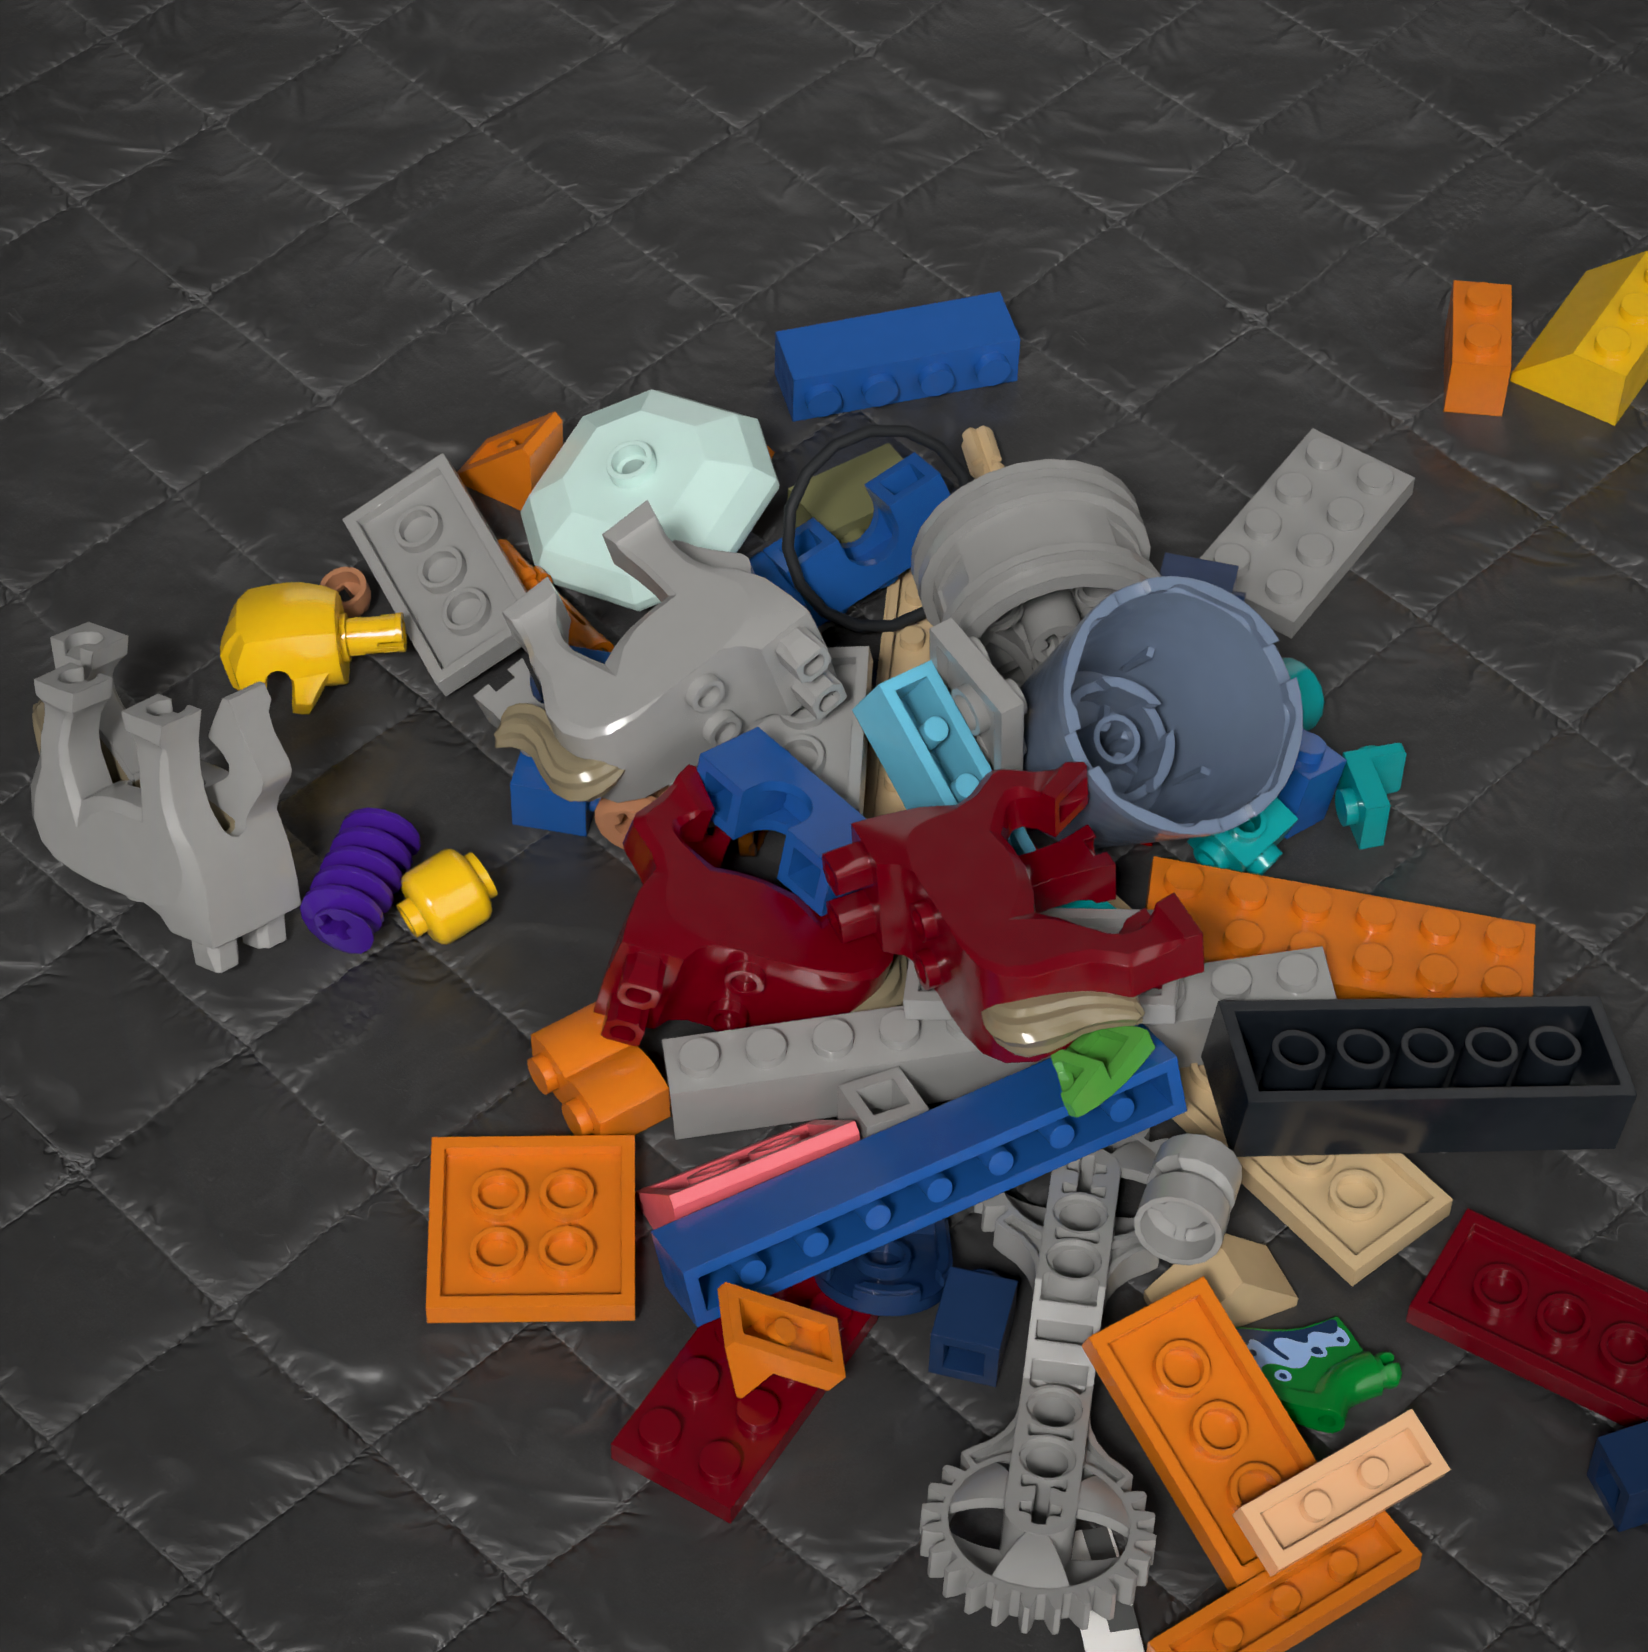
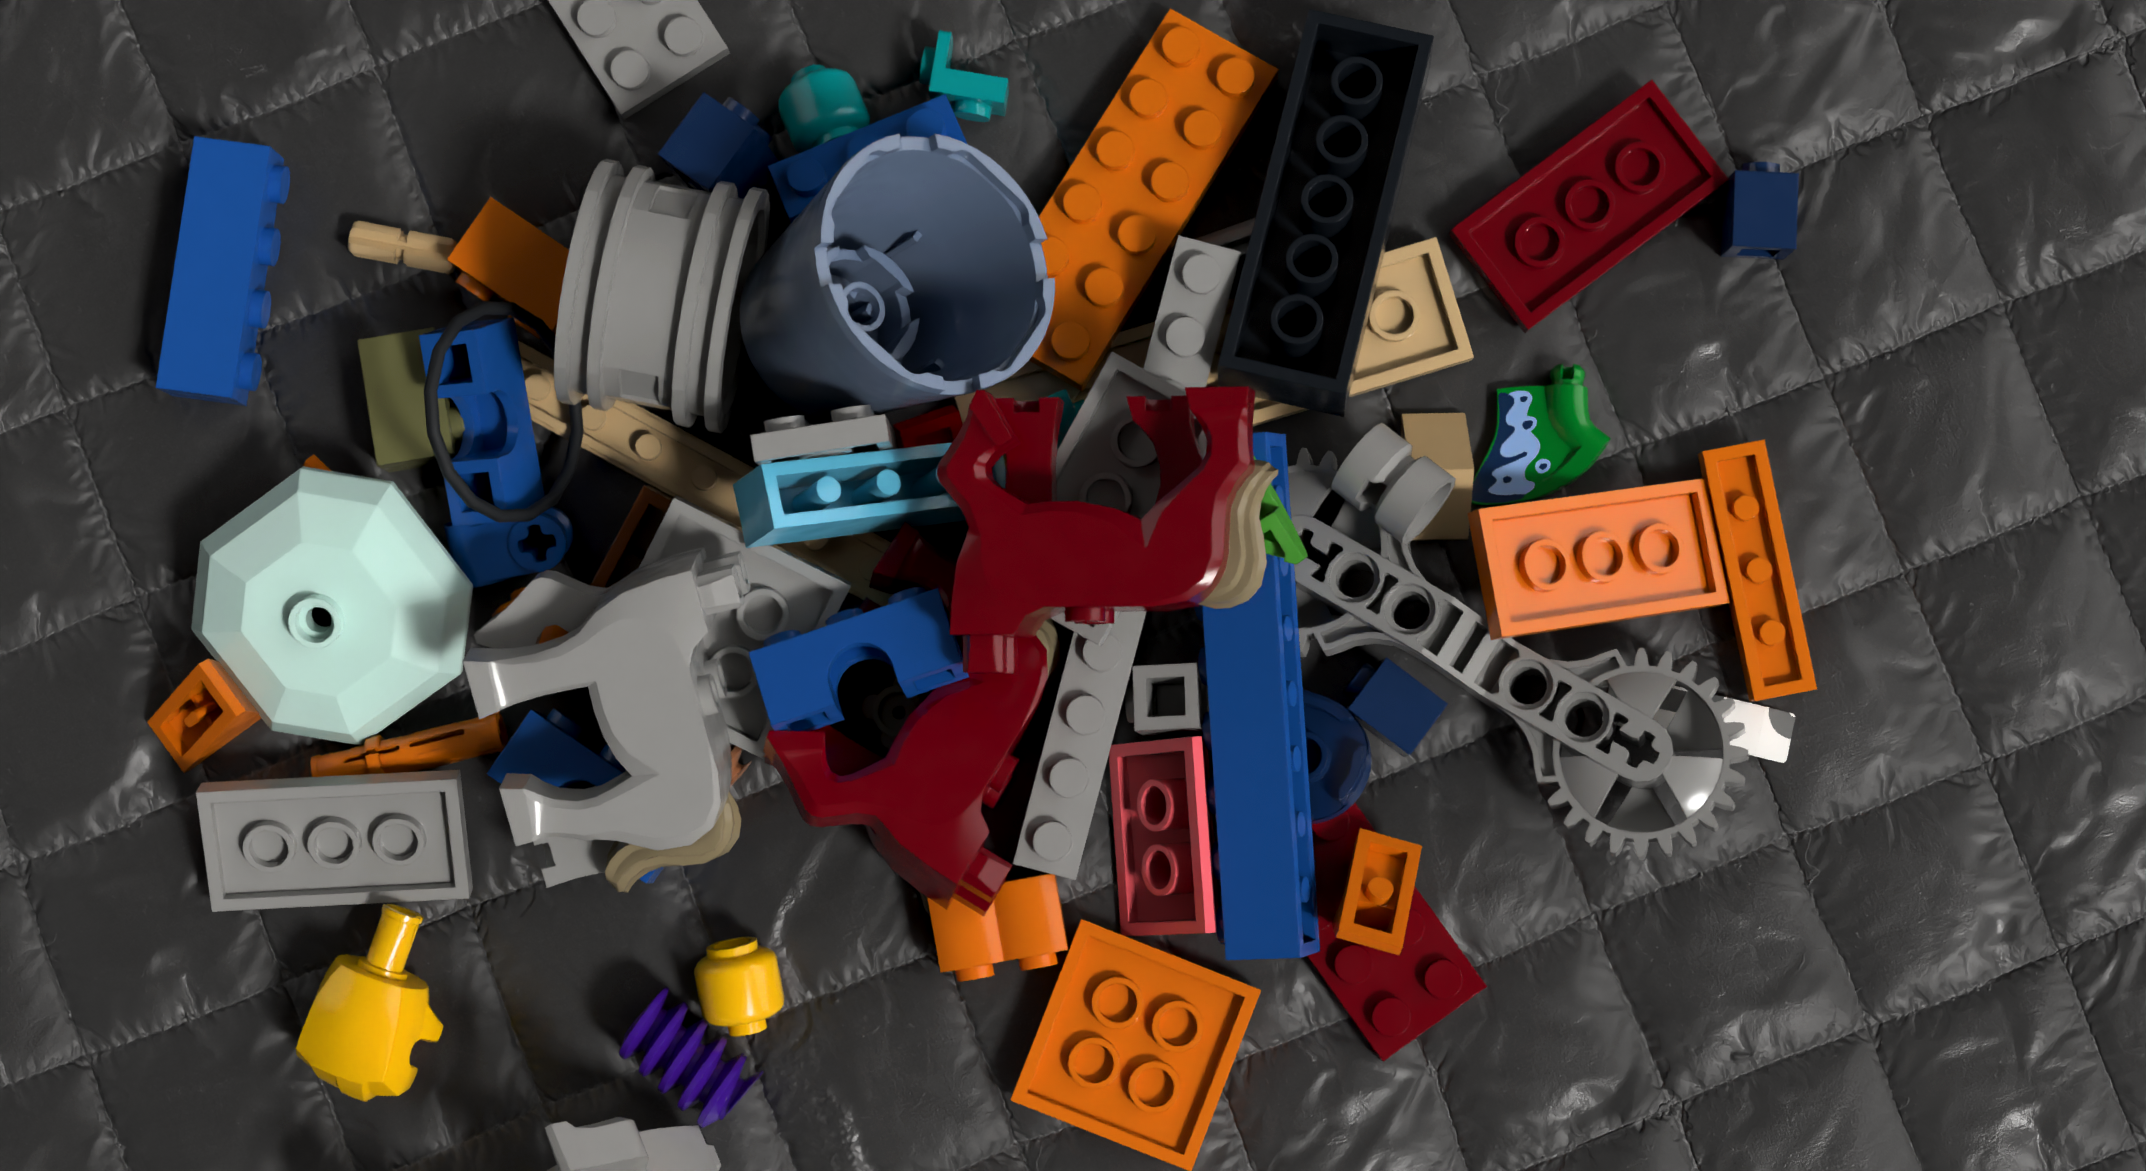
camera: 70 degrees left, 35 degrees up
(355, 585) = (316, 955): nougat hinge -> none
(1341, 1492) = (1698, 482): light nougat plate -> none

